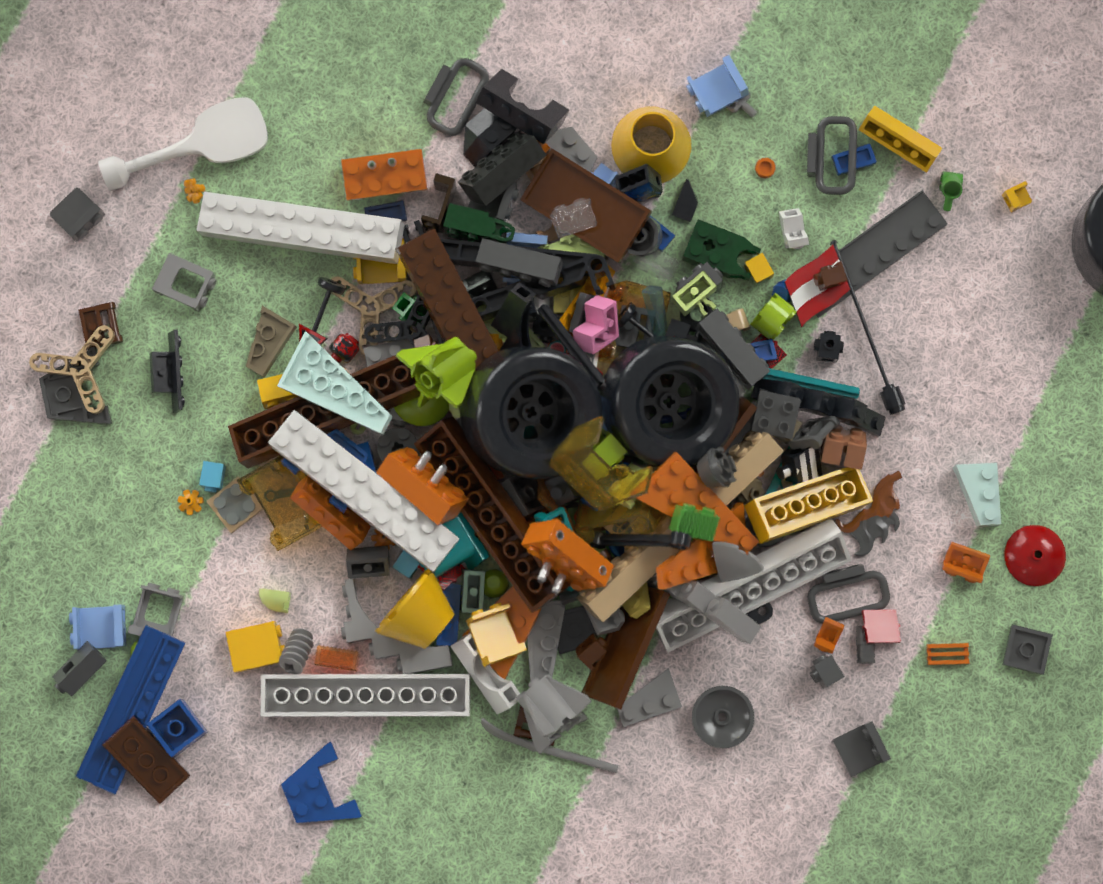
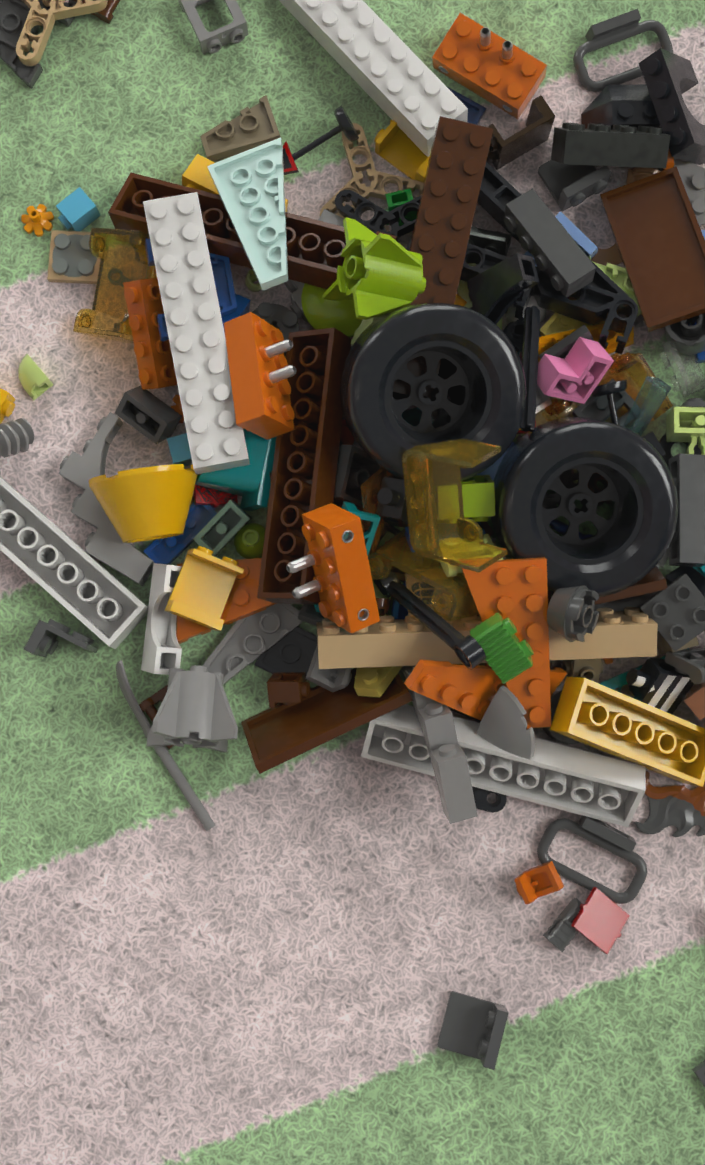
camera: 40 degrees right, 0 degrees up
(166, 372) = (121, 79): black bracket -> none
(337, 658) = (37, 481): clear orange brick -> none
(344, 348) = (307, 197): head -> none
(427, 746) = (44, 640): none -> dark grey bracket
(475, 225) = (527, 168): dark green brick -> none
(573, 218) = (640, 249): clear bracket -> none
(651, 700) = (303, 789): light grey wing -> none
(738, 714) = (357, 891): dark grey dish -> none
(825, 671) = (504, 918): dark grey brick -> none
(965, 653) = (663, 1024): orange tile -> none

